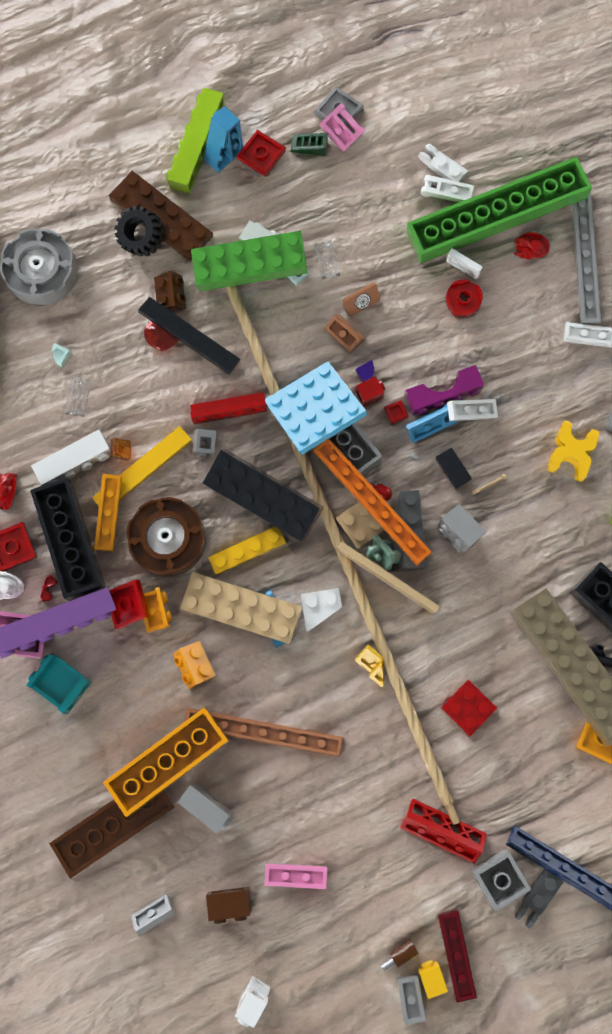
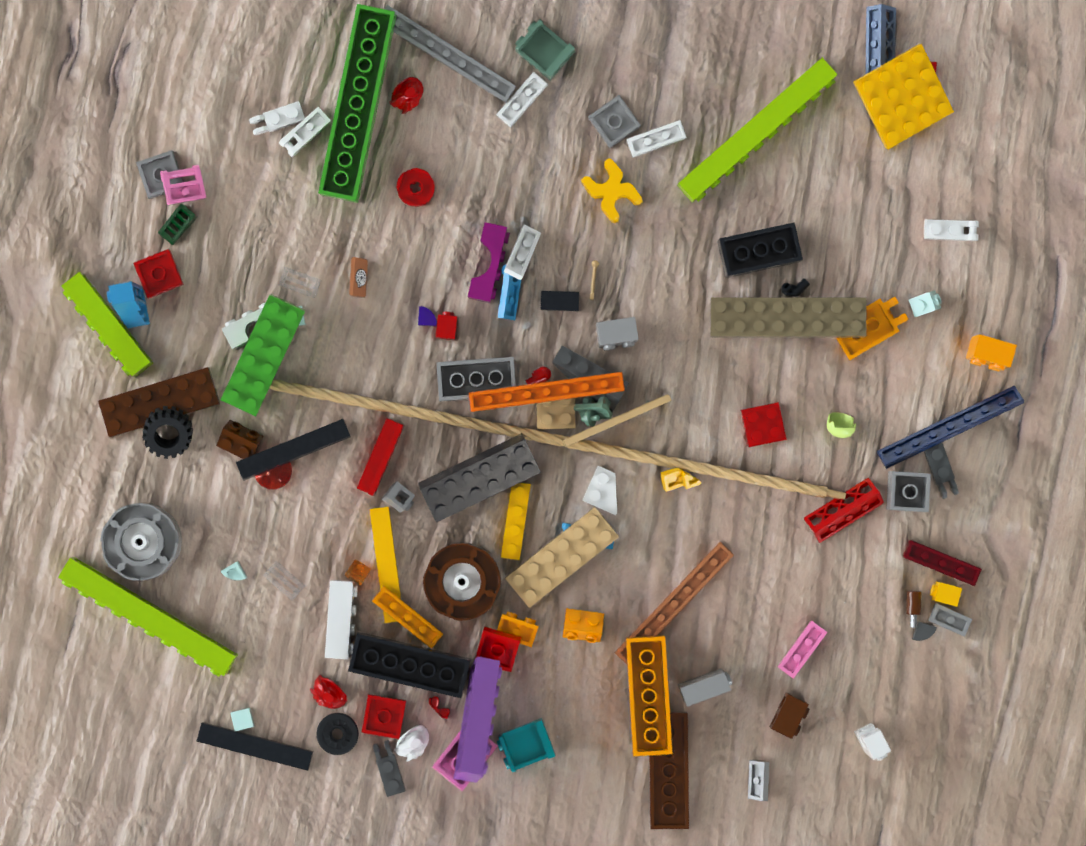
camera: 60 degrees left, 10 degrees up
(315, 407) = (434, 385): medium azure plate -> none
(344, 333) = (378, 311): nougat slope -> none
(384, 980) = (923, 631): none -> dark grey tile
(396, 412) = (478, 315): red tile -> none
(464, 264) = (385, 166): white tile -> none
(515, 777) = (841, 425): none -> yellowish green hair

